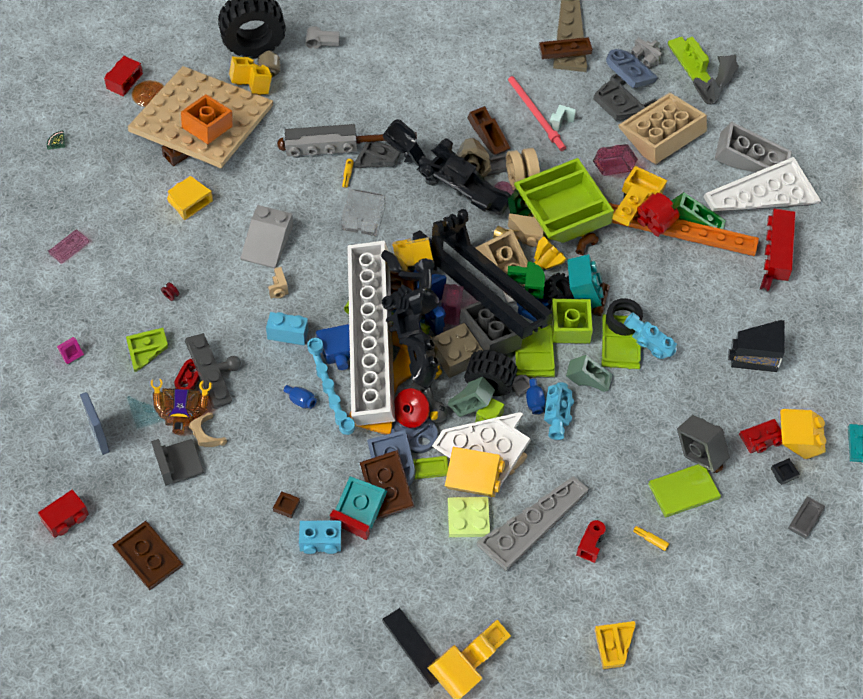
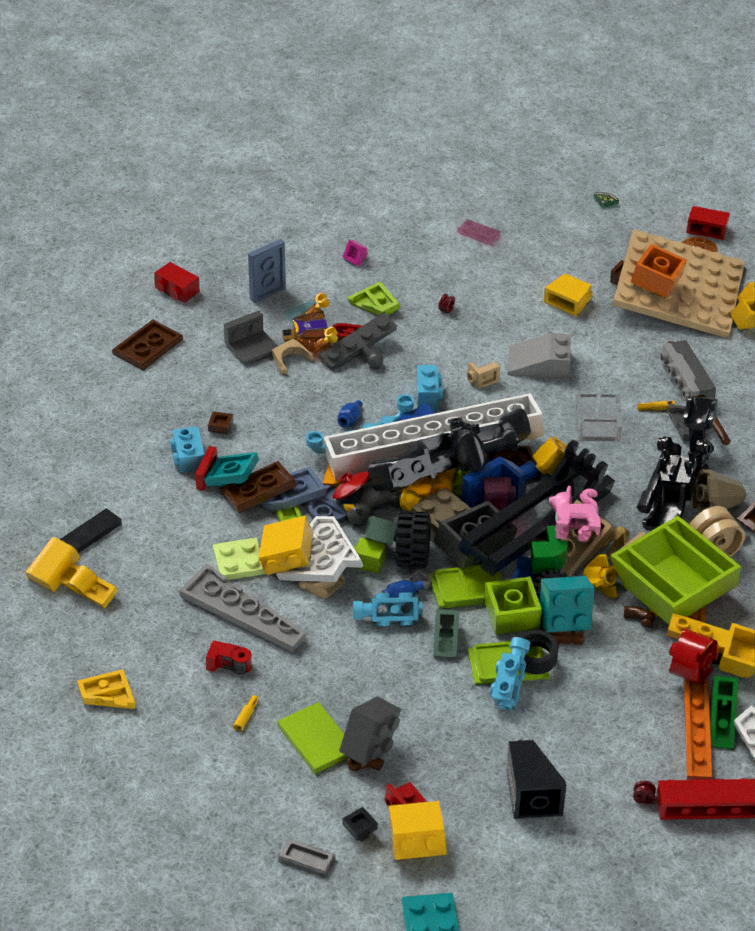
camera: 80 degrees right, 15 degrees down
(507, 247) = (576, 516): none -> bright pink animal

